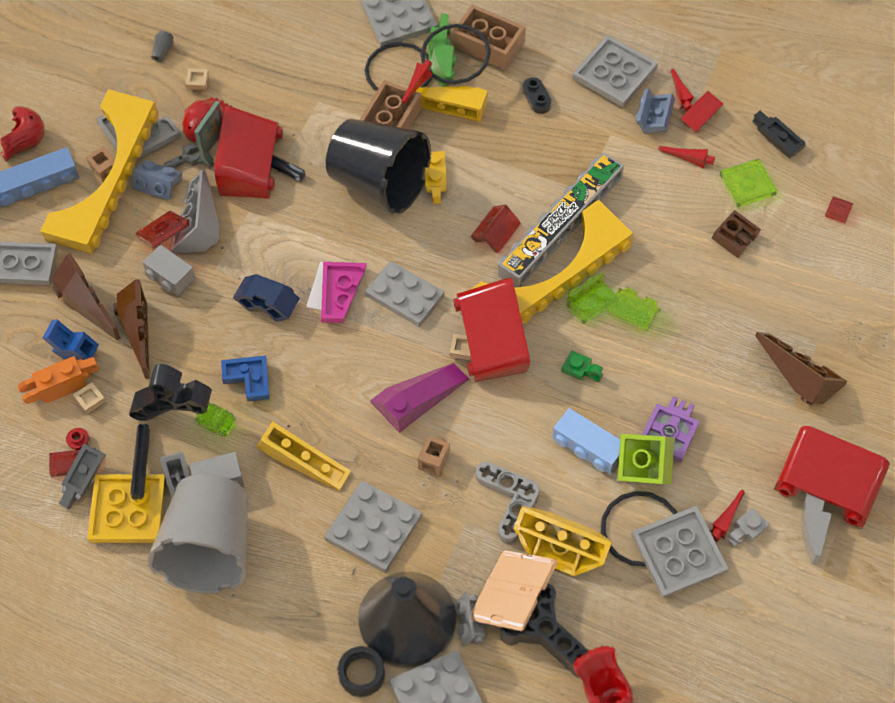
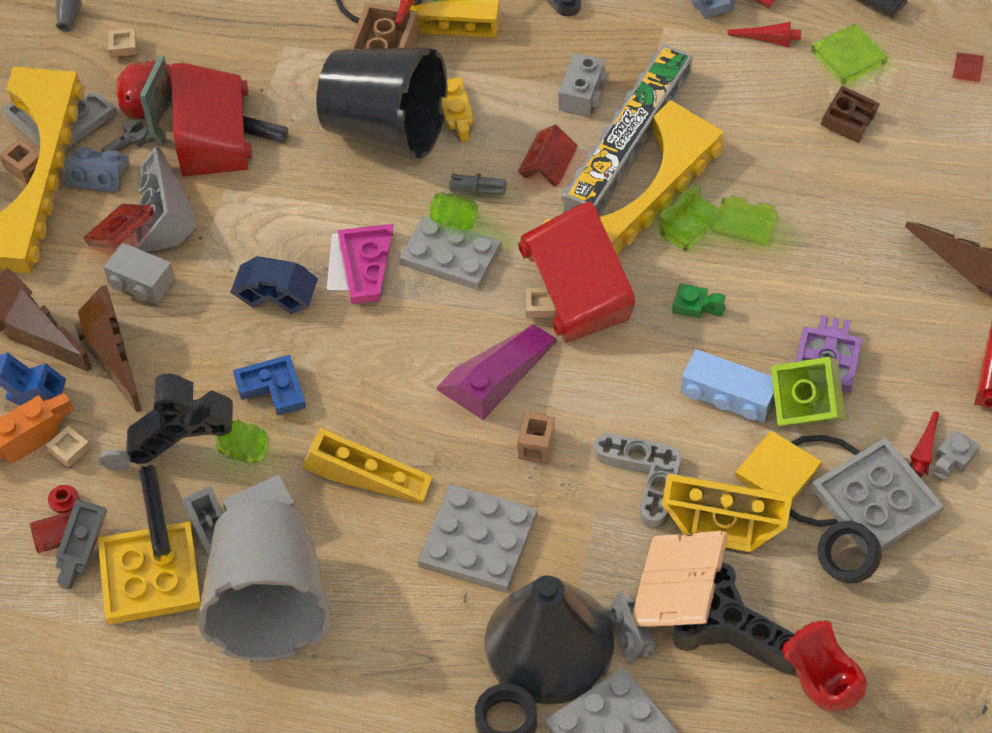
camera: 10 degrees left, 5 degrees down
(120, 415) = (114, 460): none -> light grey piece
(412, 262) = (453, 211): none -> clear neon green gear
(437, 242) = (477, 184): none -> dark grey axle
(535, 173) = (582, 85): none -> light grey brick
(610, 514) = (778, 467): none -> yellow tile
(628, 591) = (832, 534): none -> black tyre

